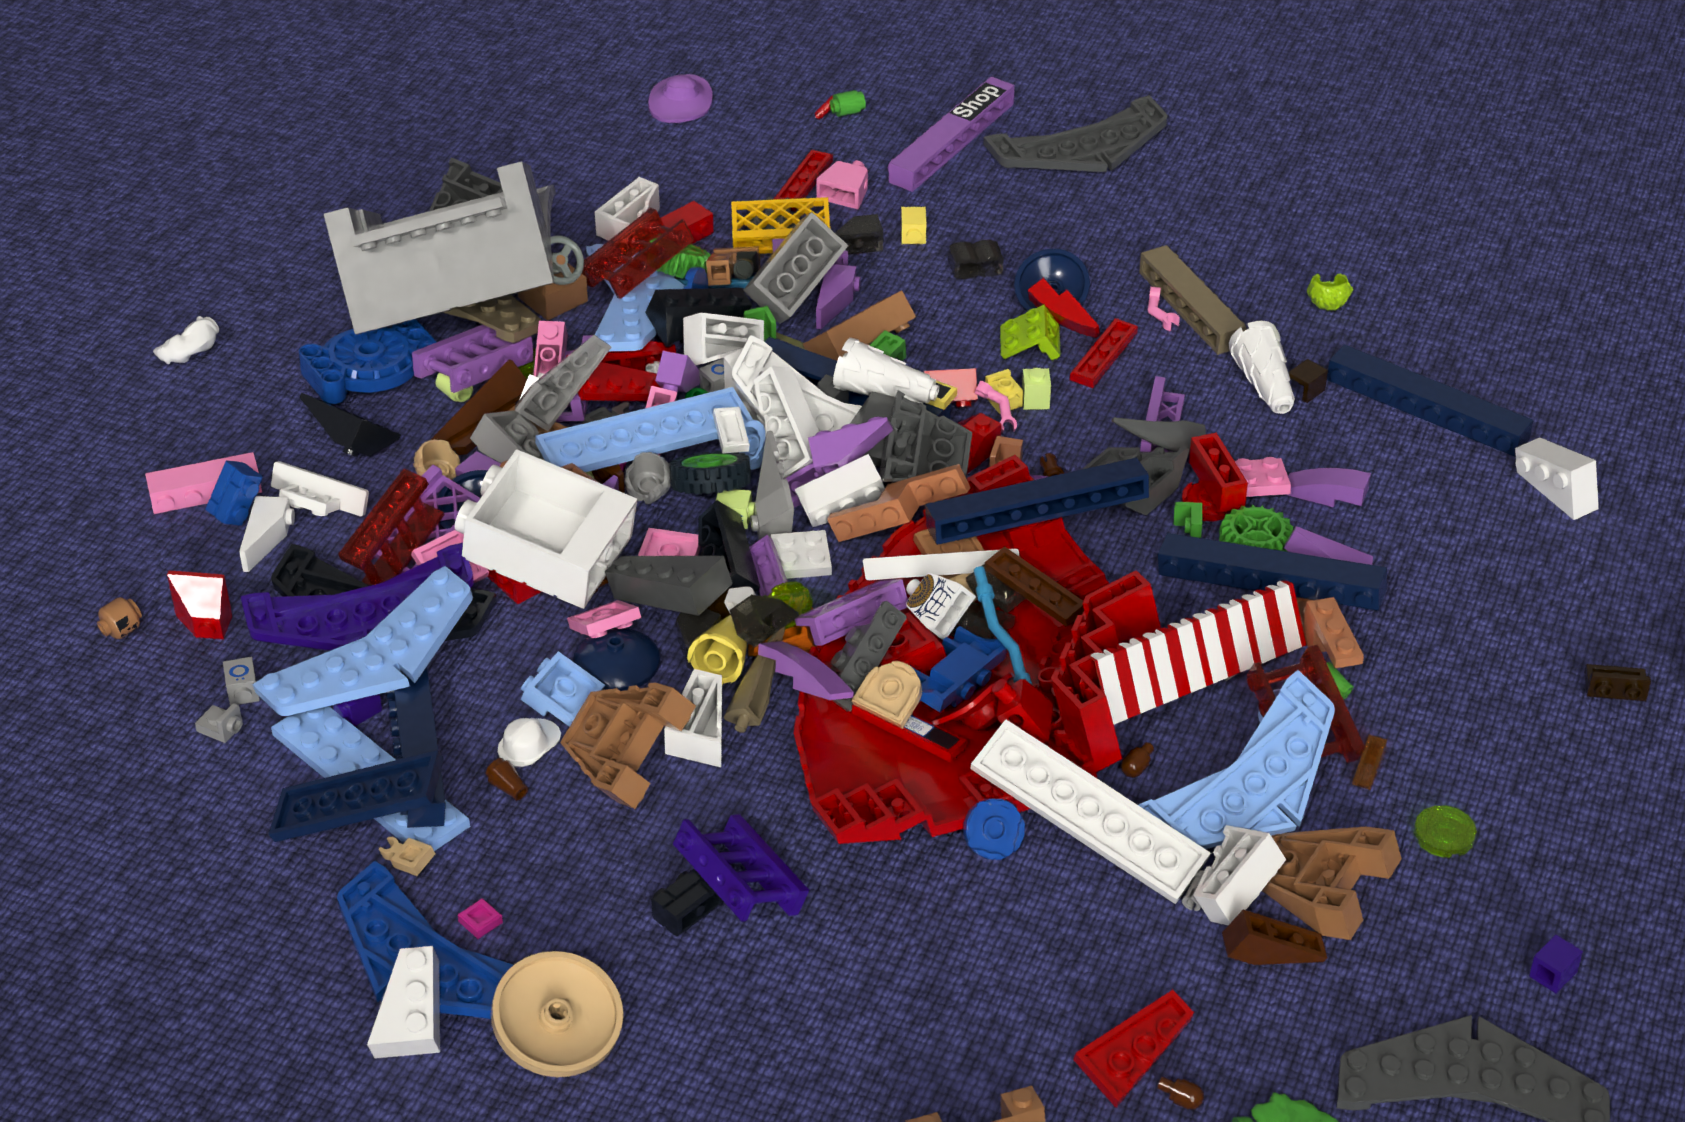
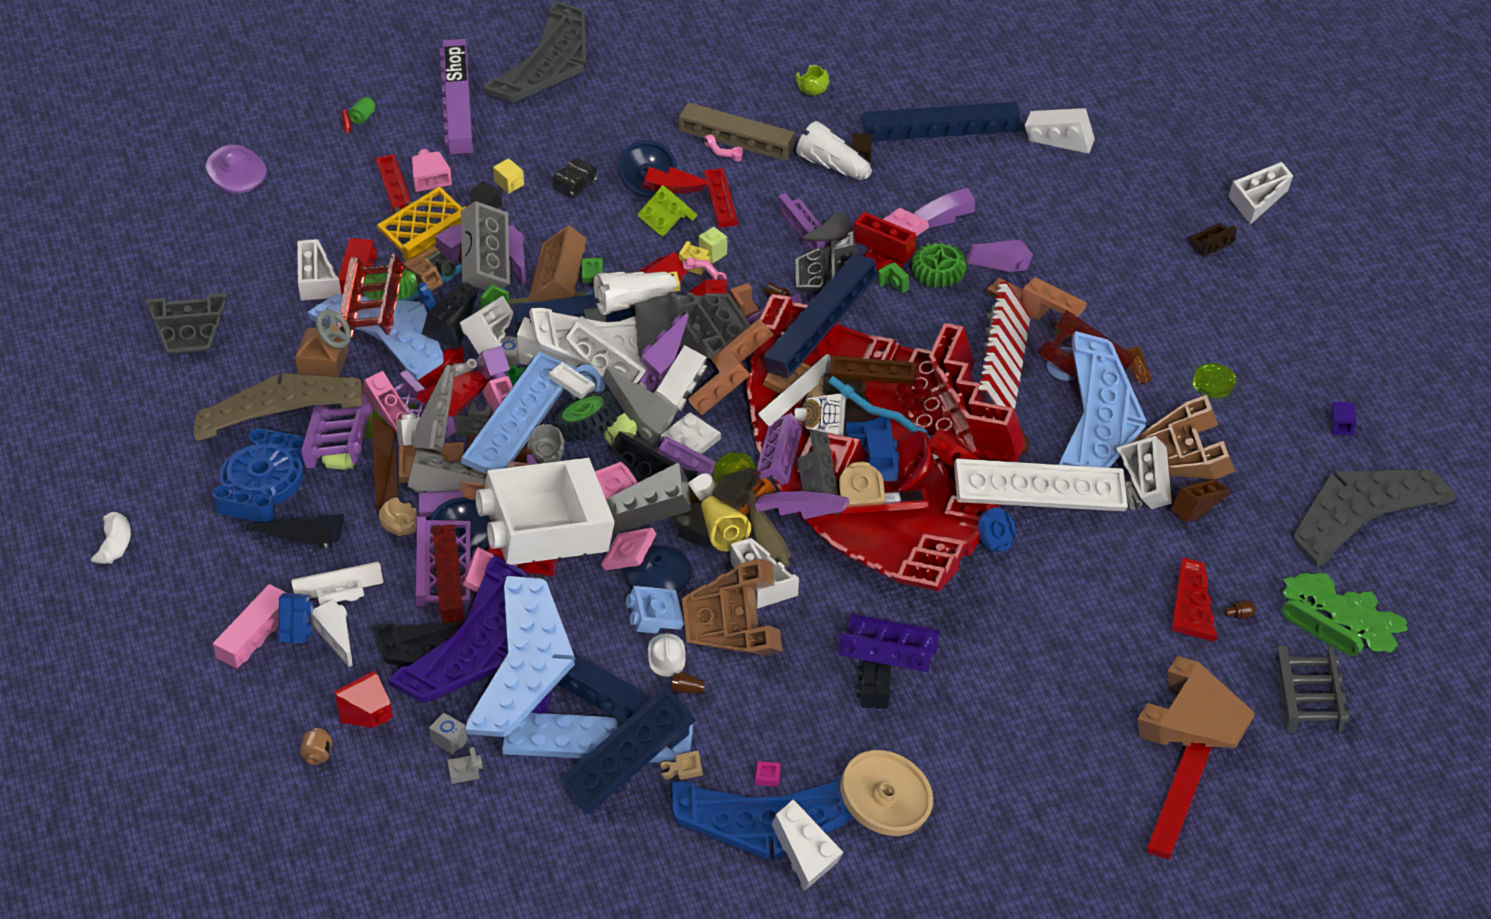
camera: 40 degrees left, 5 degrees up
(444, 255) = (254, 363): light grey slope -> none
(1259, 567) = (976, 281): dark blue brick -> none

